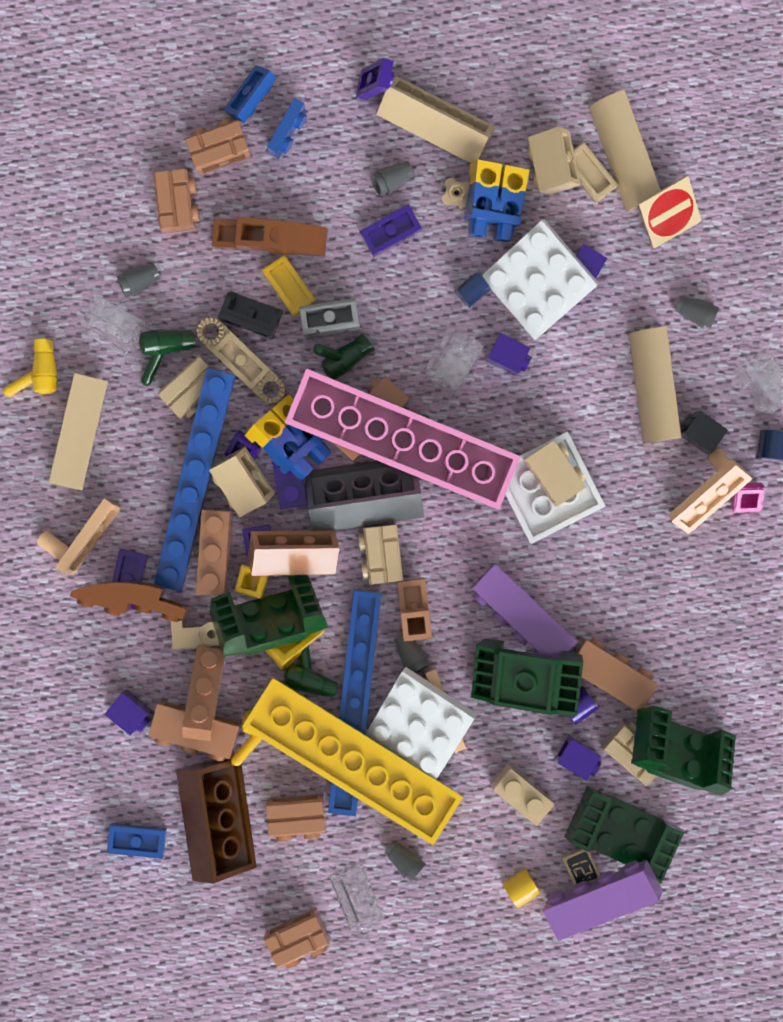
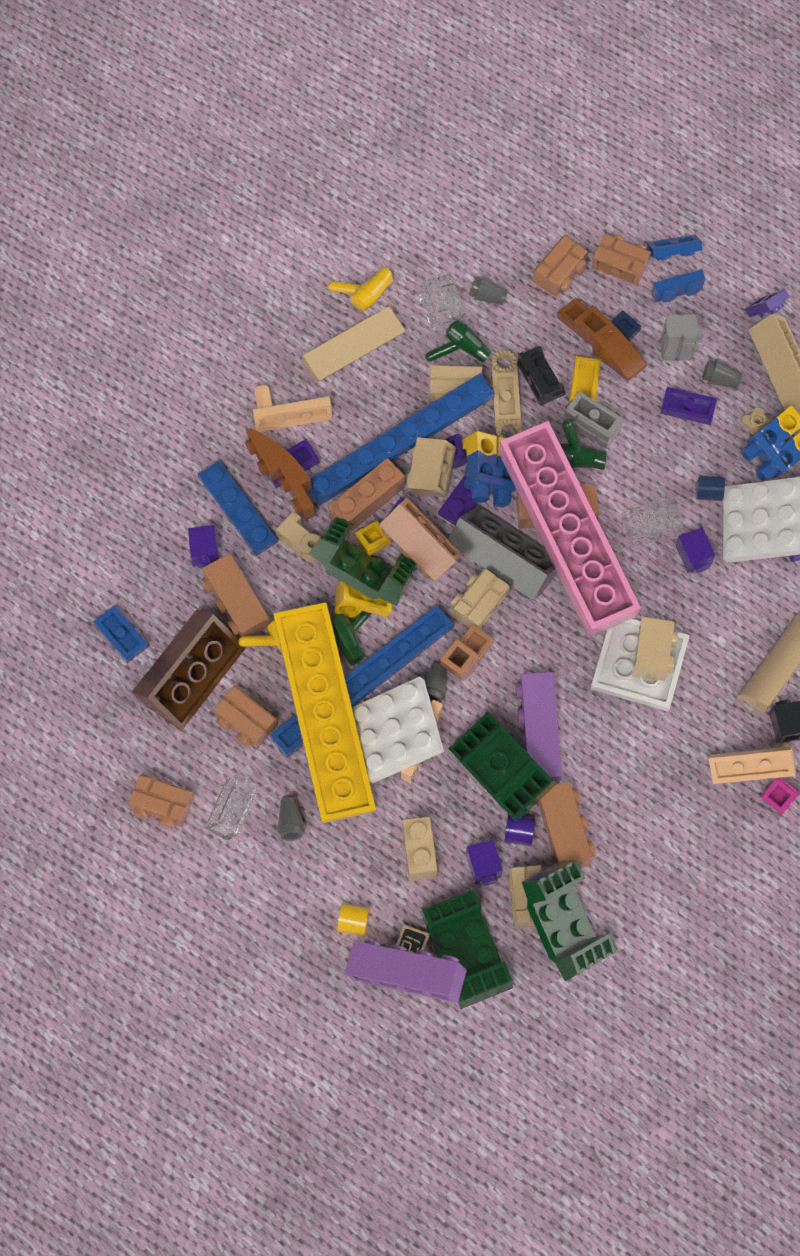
camera: 40 degrees right, 20 degrees down
(122, 653) = (237, 508): none -> blue plate
(203, 694) = (268, 572): nougat brick -> none
(276, 207) = (626, 325): none -> dark blue plate
(333, 178) = (680, 337): none -> light grey brick

